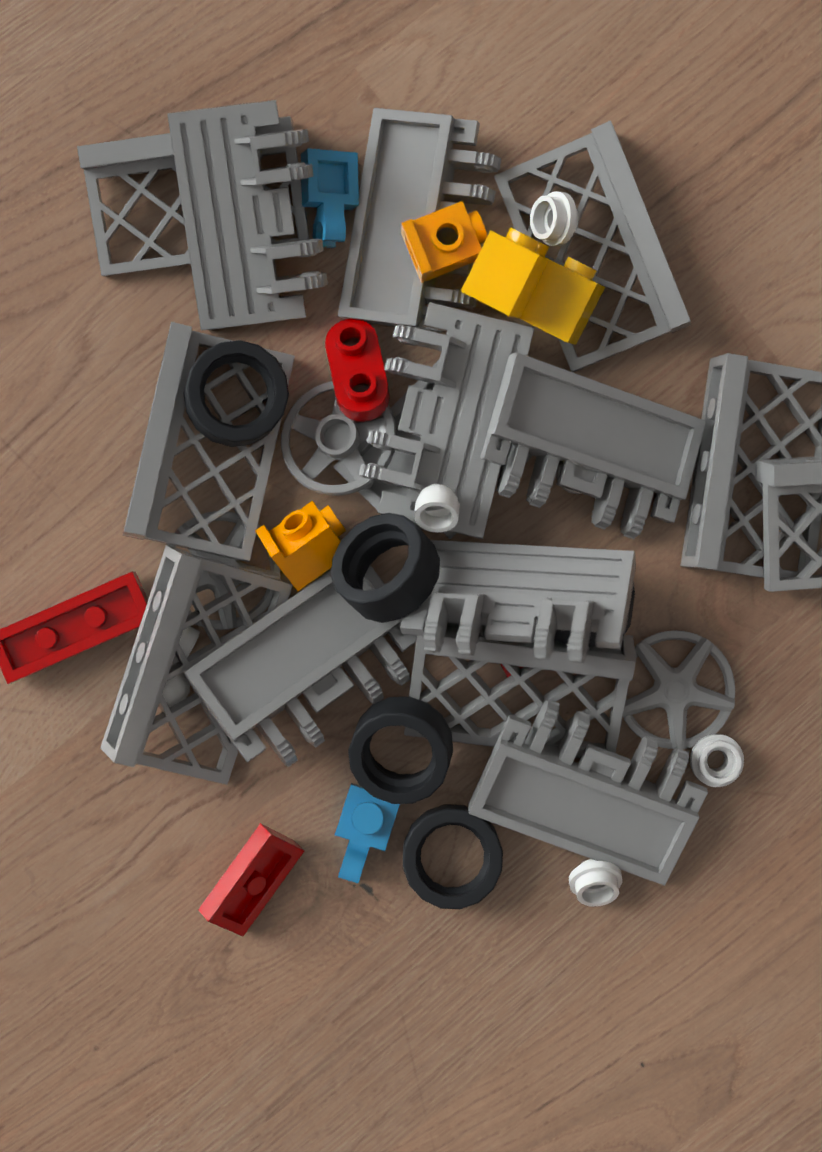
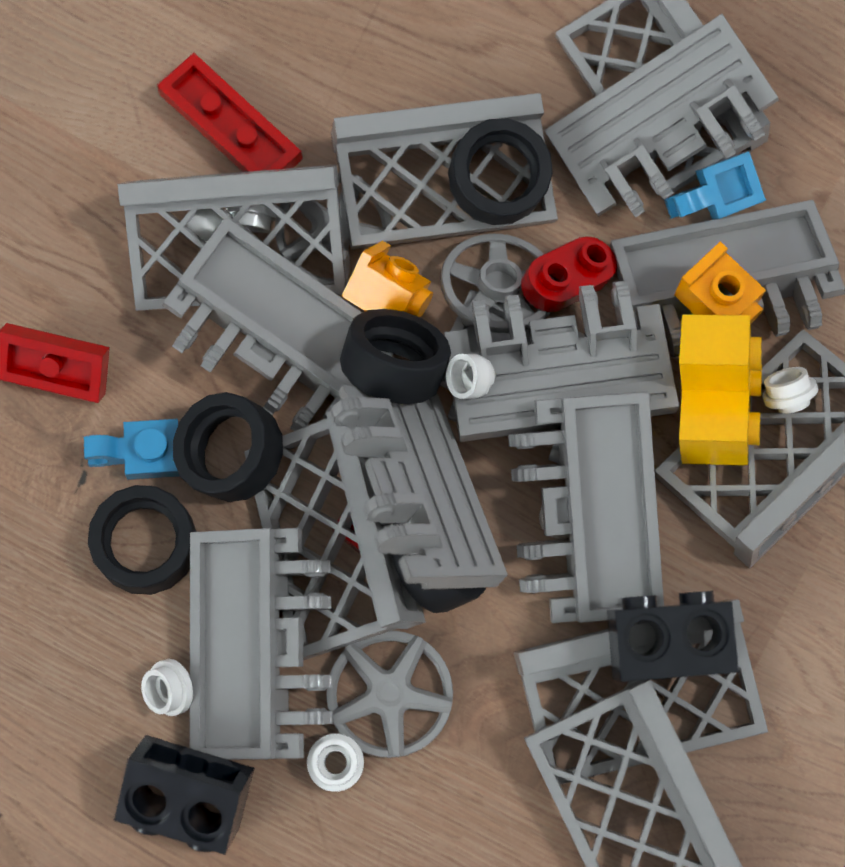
camera: 65 degrees right, 15 degrees down
(697, 902) = (186, 780): none -> black brick
(758, 437) = (672, 652): none -> black brick

